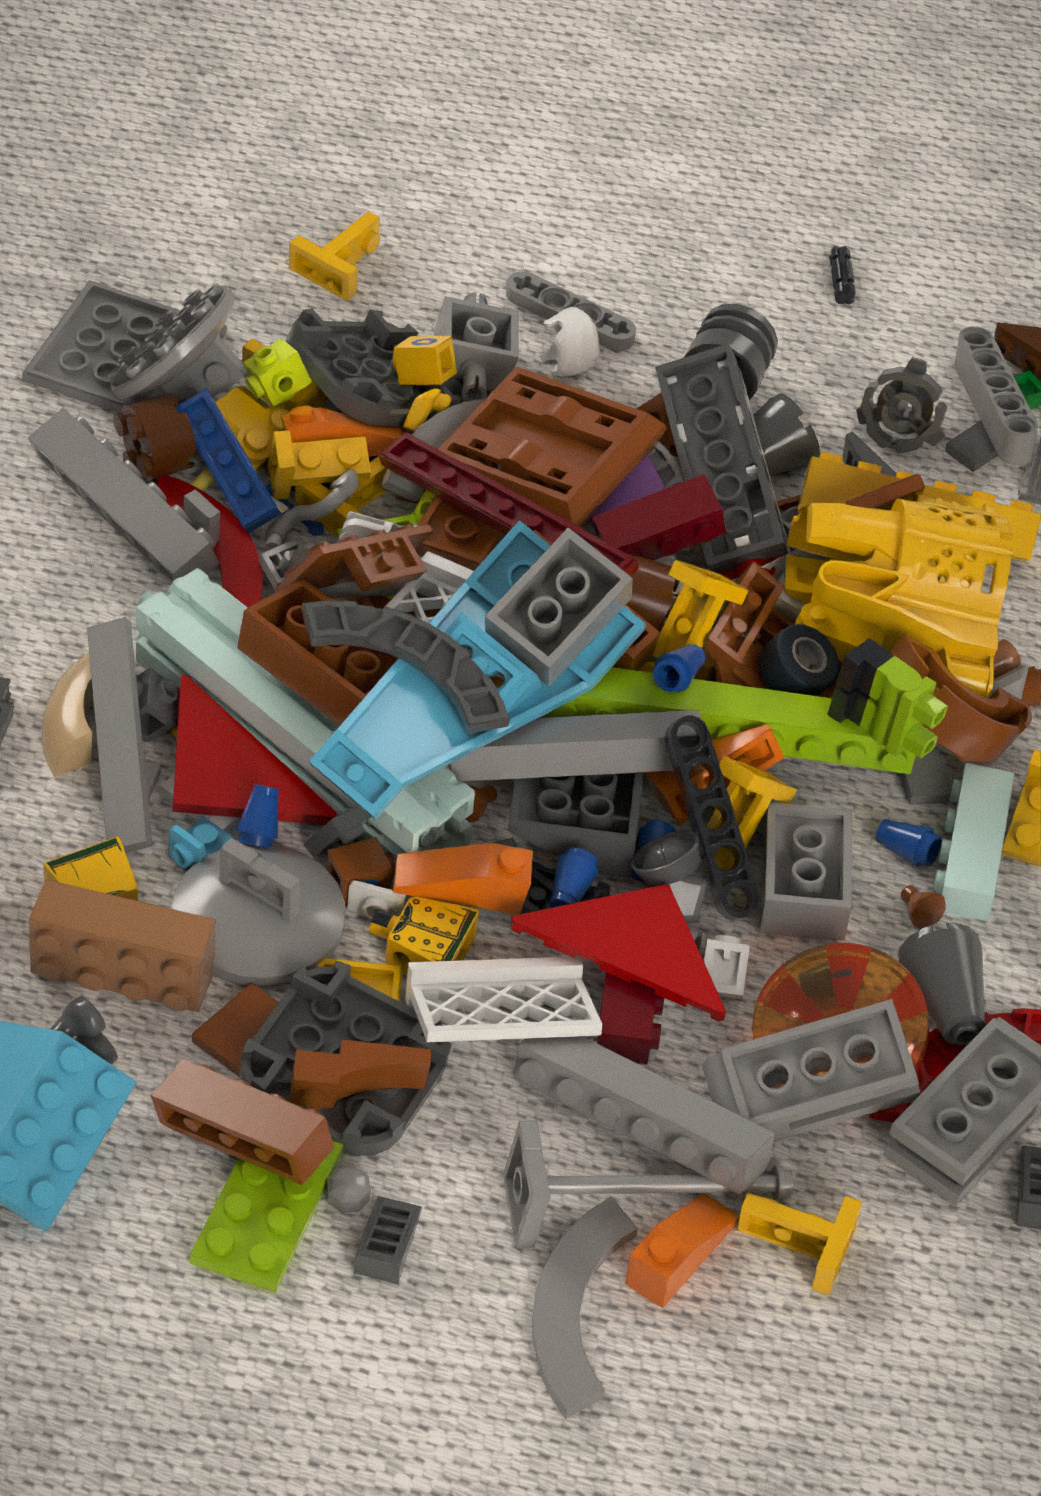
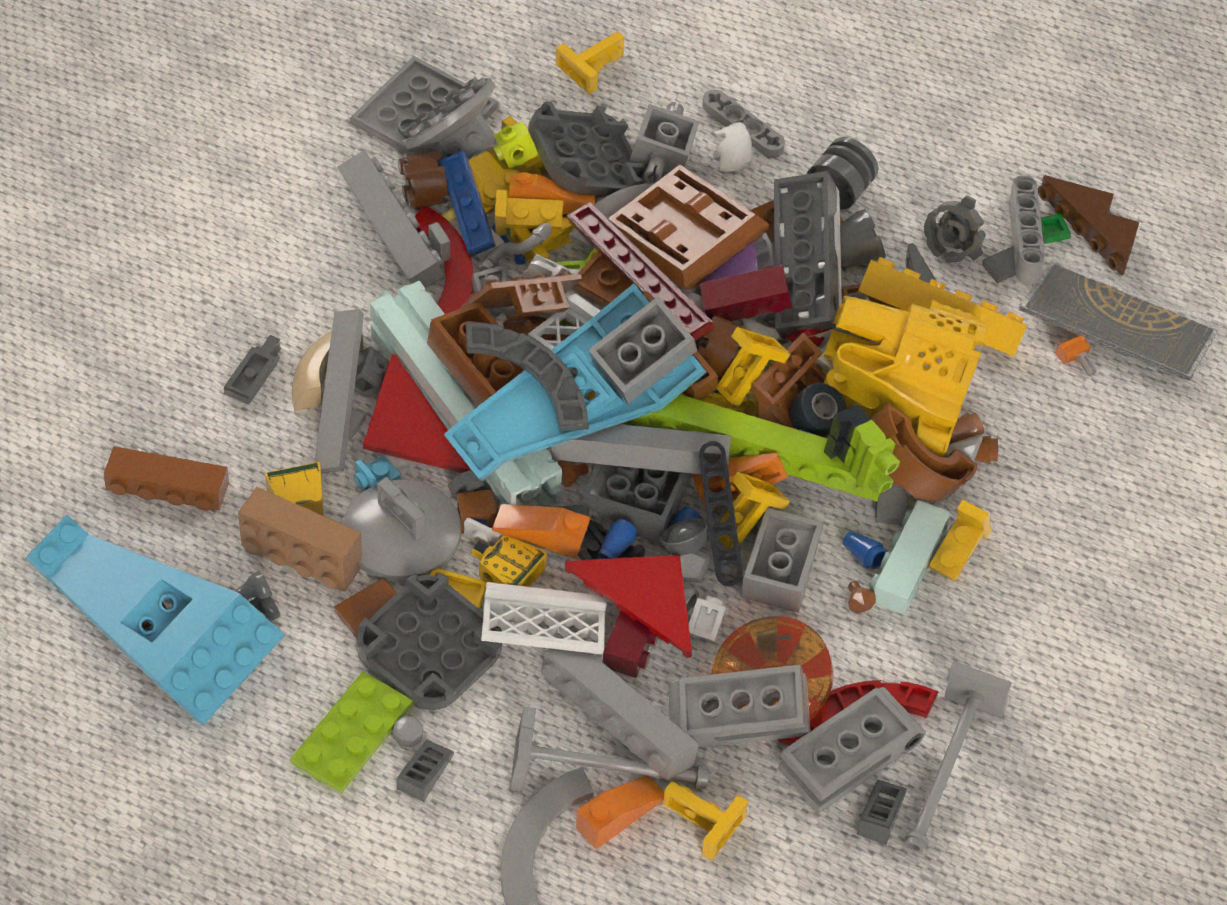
camera: 15 degrees right, 5 degrees up
(243, 1121) = (347, 673): brick -> none
(260, 817) = (418, 463): blue cone -> none
(359, 1067) = (407, 653): dark orange slope -> none
(423, 406) = (613, 182): yellow arm -> none
(424, 360) = (621, 149): yellow brick -> none
(678, 668) = (725, 403): blue cone -> none
(842, 275) = (947, 122): black axle -> none
(886, 496) = (919, 297): dark orange tile -> none
(950, 977) = (855, 653): dark grey cone -> none

